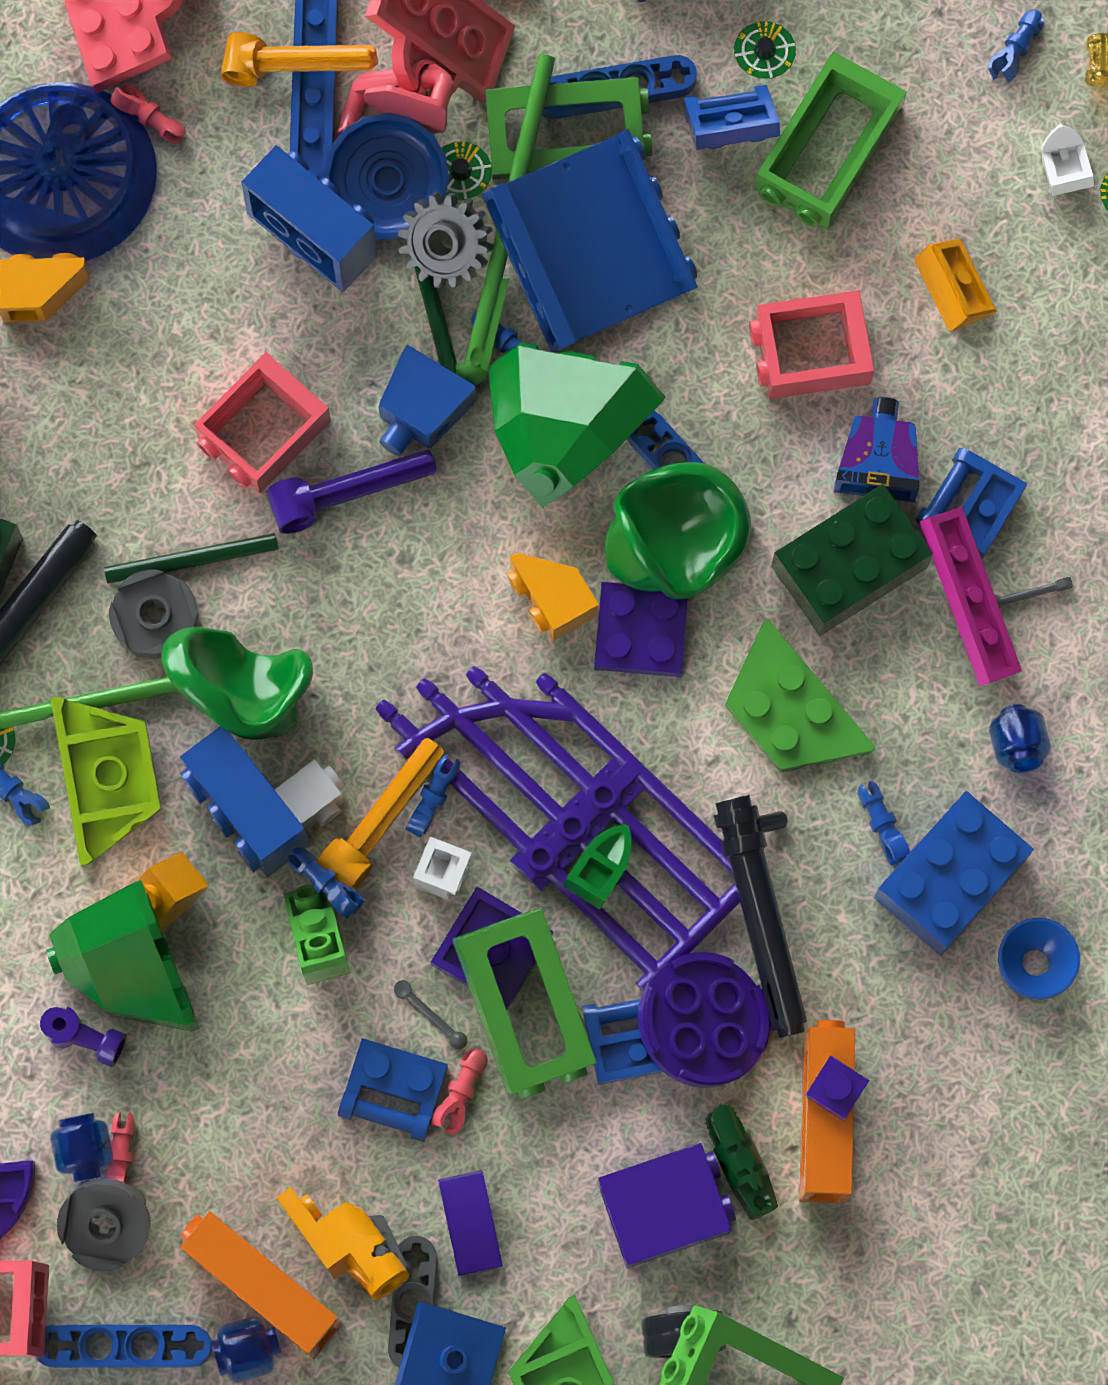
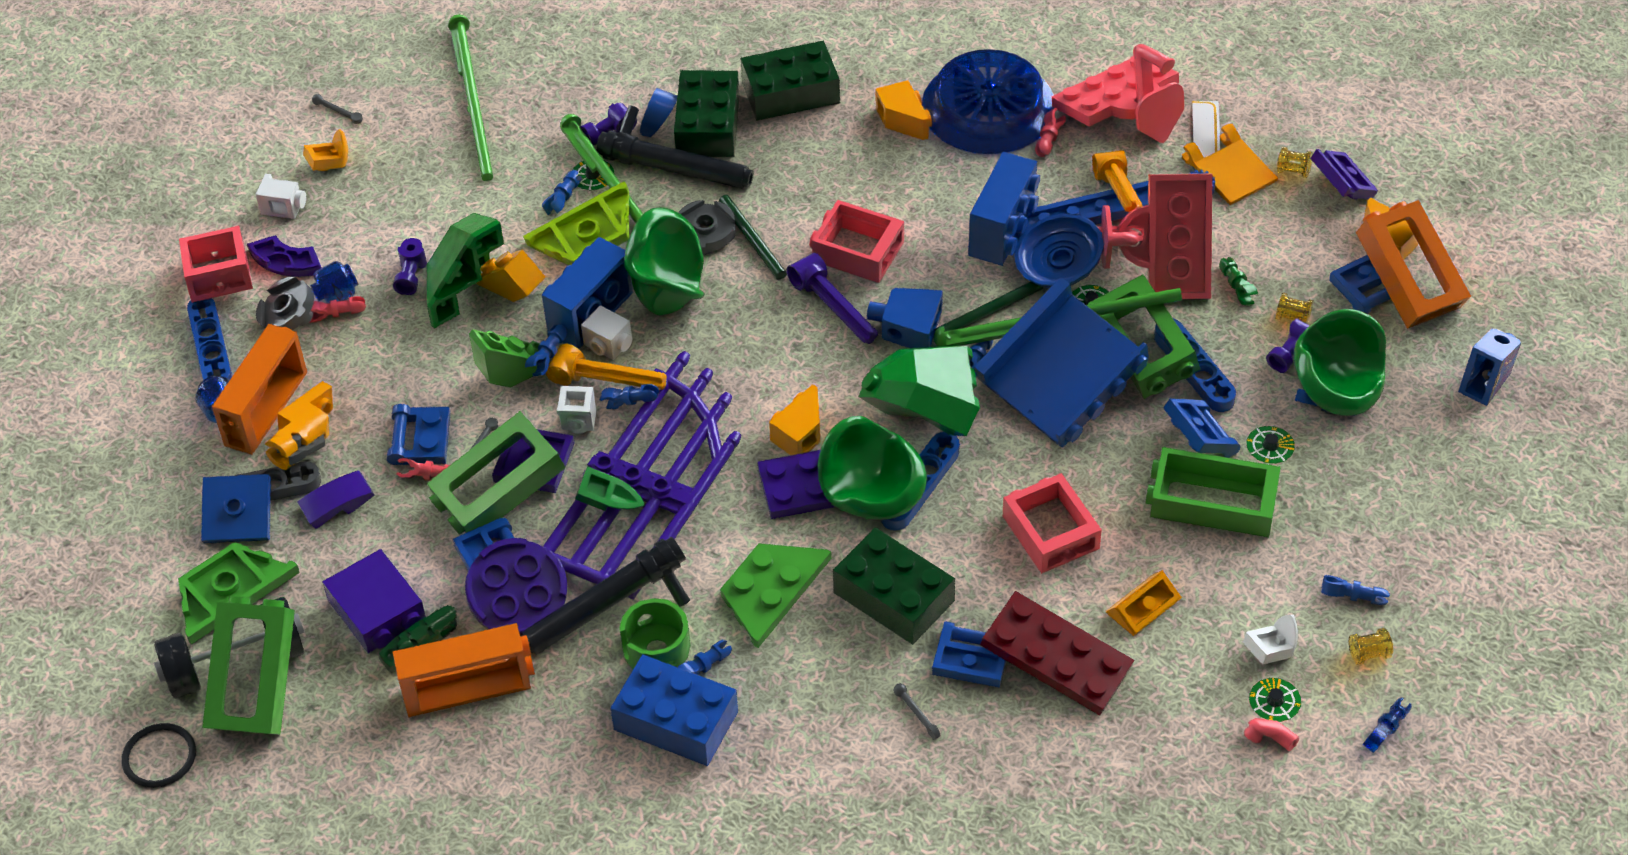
camera: 75 degrees right, 25 degrees down
(424, 242) = (1024, 286): gear -> none
(836, 1088) = (473, 646): dark purple plate -> none
(844, 842) = (666, 624): none -> bright green piece
(880, 453) = (983, 583): torso -> none
(970, 596) = (893, 663): dark pink plate -> none
(1007, 406) = (1057, 653): none -> dark red plate
(1020, 738) = (796, 727): clear blue head -> none
(1051, 940) = (621, 768): blue piece -> none

